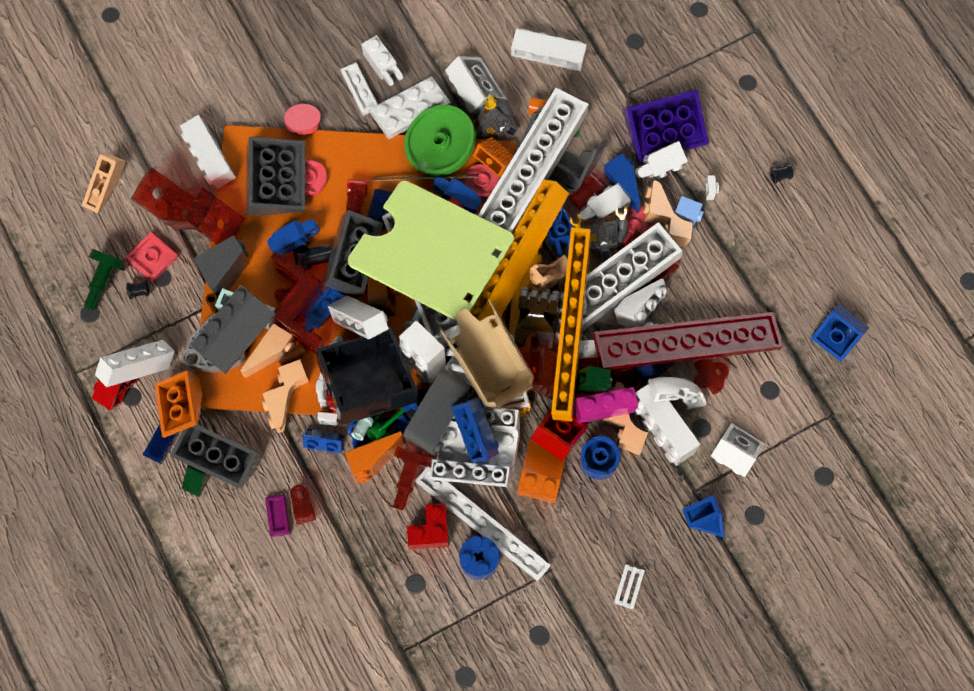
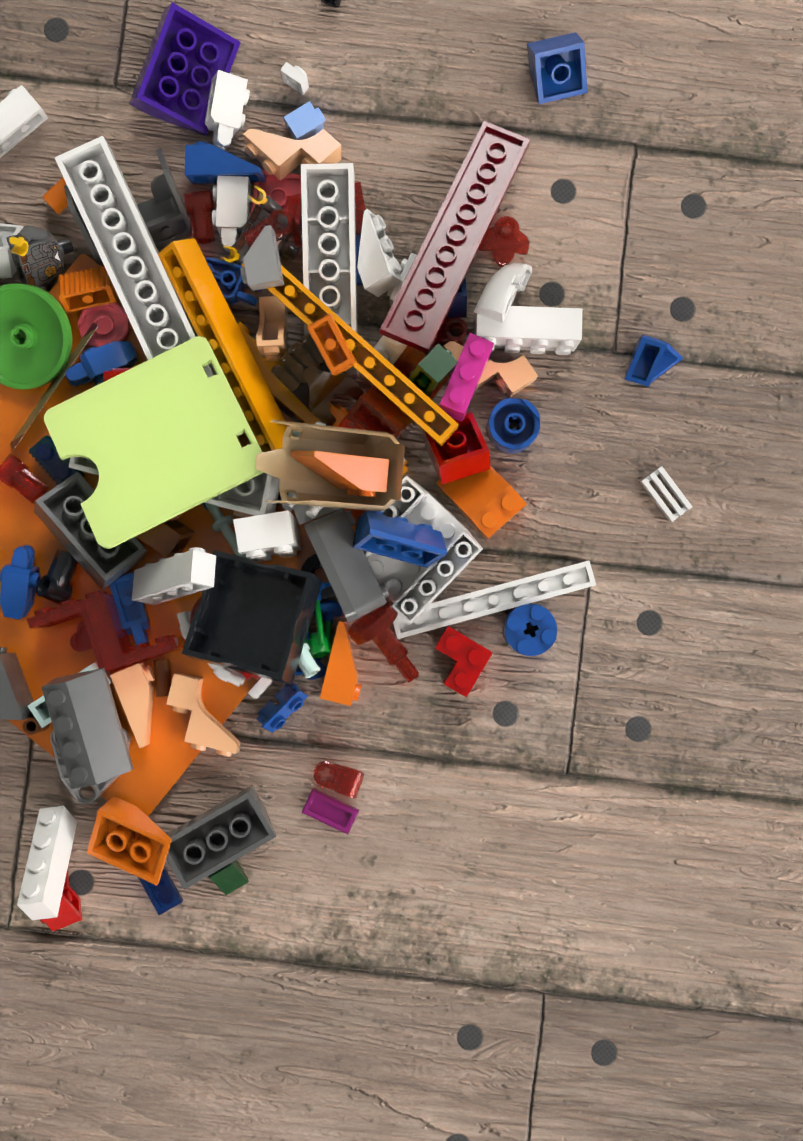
camera: 60 degrees left, 15 degrees up
(493, 369) = (355, 473): none -> slope
(561, 308) = (331, 344): none -> orange brick
(581, 237) = (263, 262): none -> light grey slope
(606, 231) = (252, 234): none -> clear red piece
(737, 450) = (606, 273): white slope -> none

